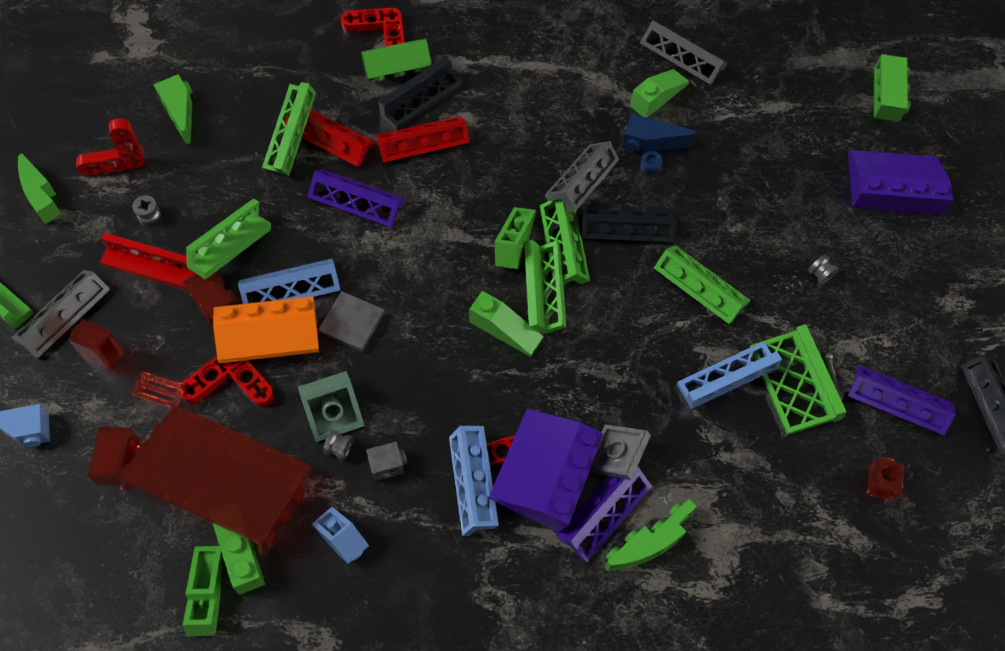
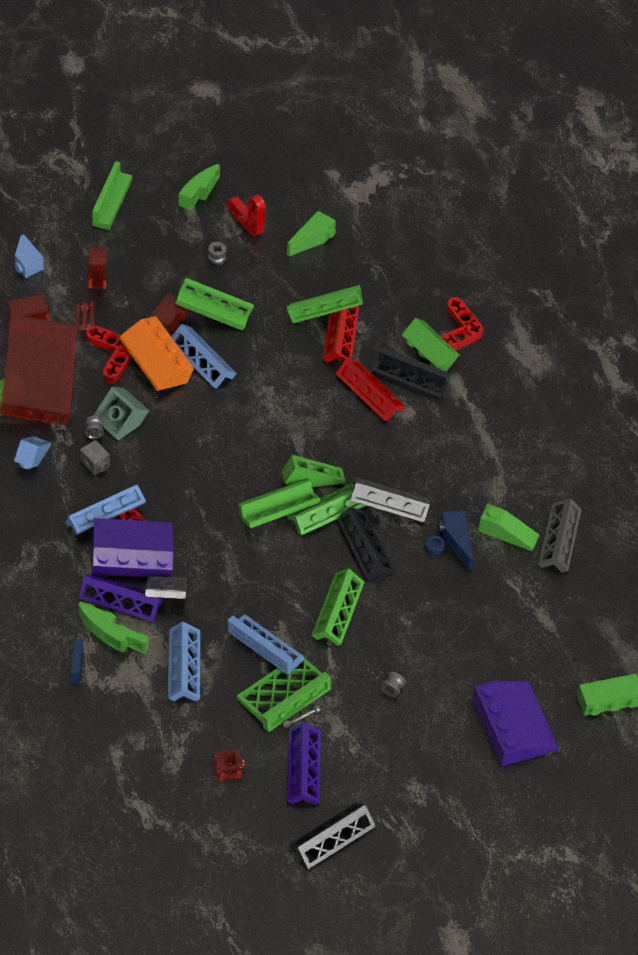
camera: 65 degrees right, 10 degrees down
(61, 313) = (115, 242): dark grey fence -> none
(145, 261) = (174, 266): red fence -> none
(351, 321) = (192, 403): flat silver tile -> none
(359, 189) = (299, 363): dark purple fence -> none
(503, 323) = (235, 490): bright green slope -> none
(687, 599) = (77, 661): none -> dark blue tile
(726, 474) = (180, 659): none -> medium blue fence

